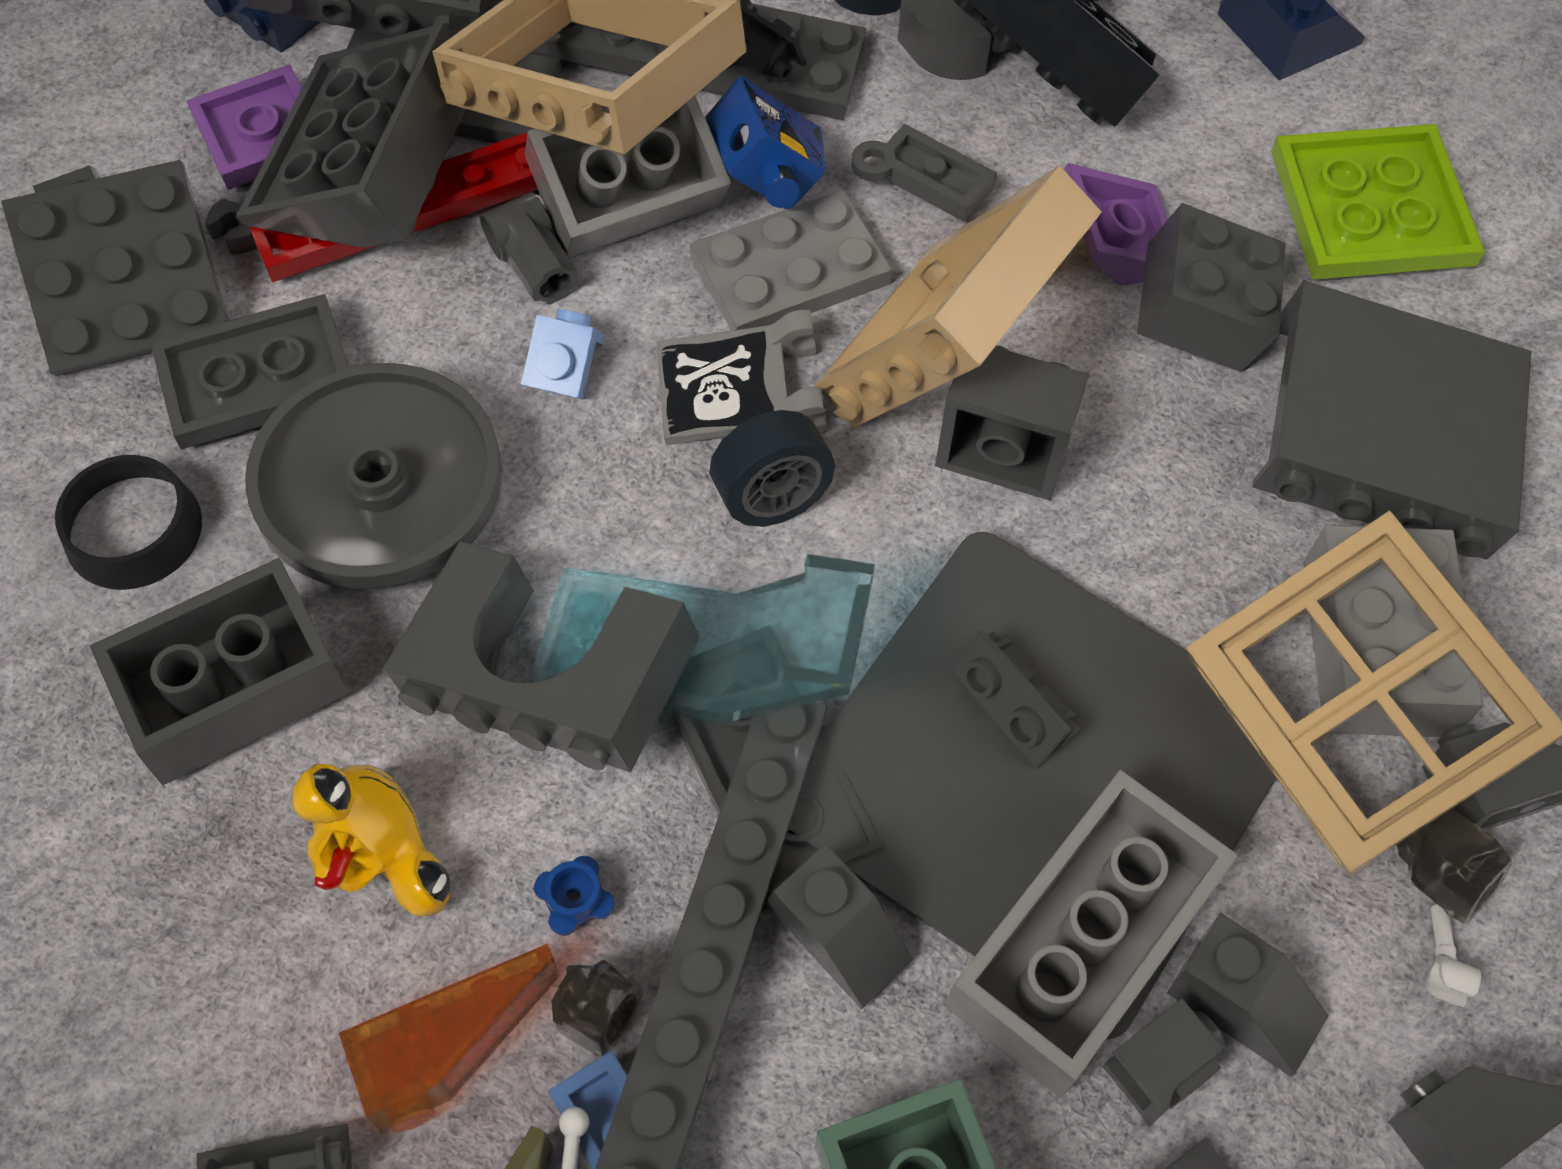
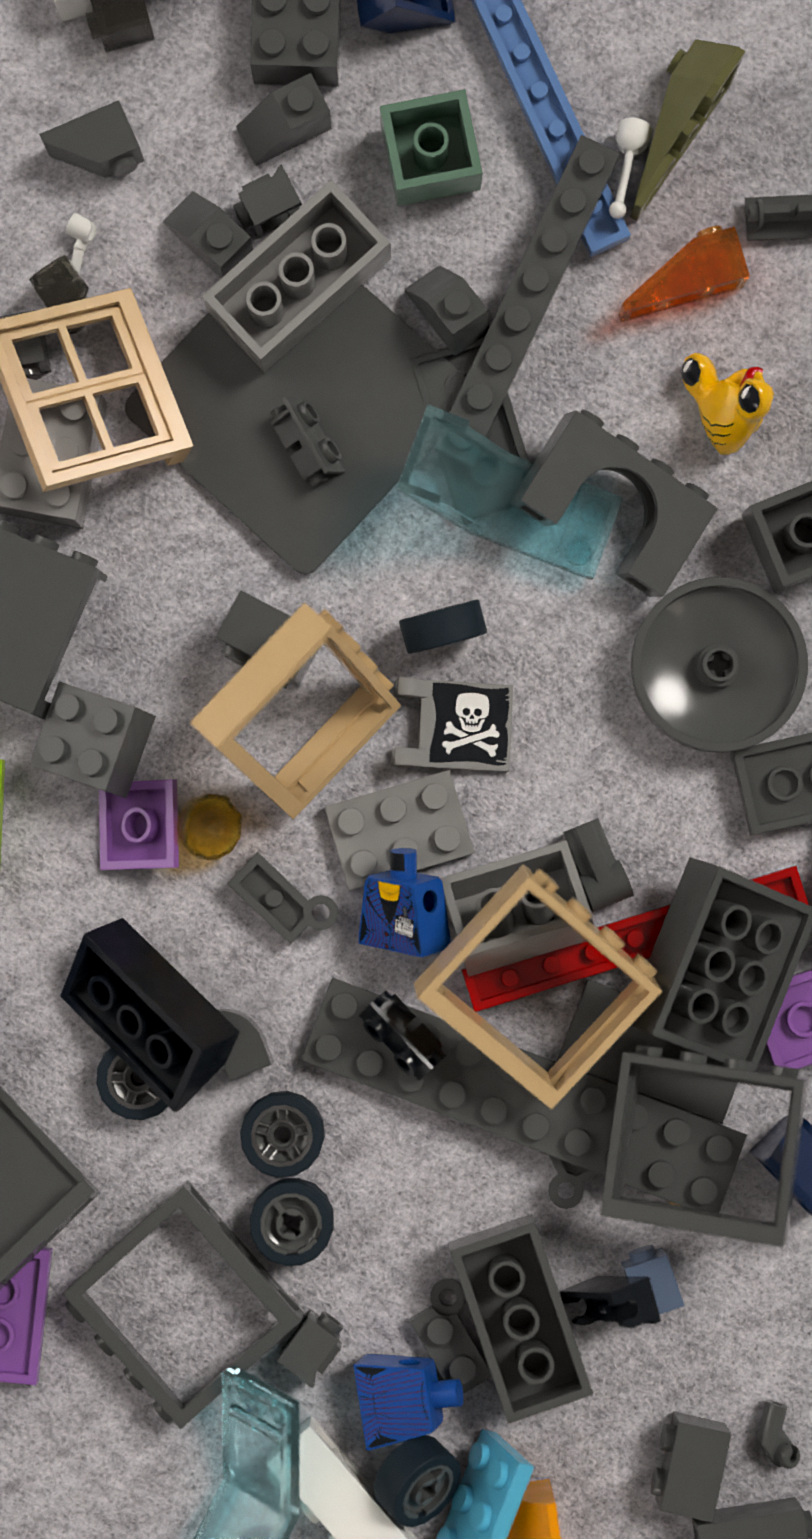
camera: 175 degrees left, 25 degrees up
(561, 353) = (579, 764): light blue bracket -> none
(573, 875) = (606, 345): blue plate -> none
(595, 1005) = (599, 281): clear smoke rock -> none

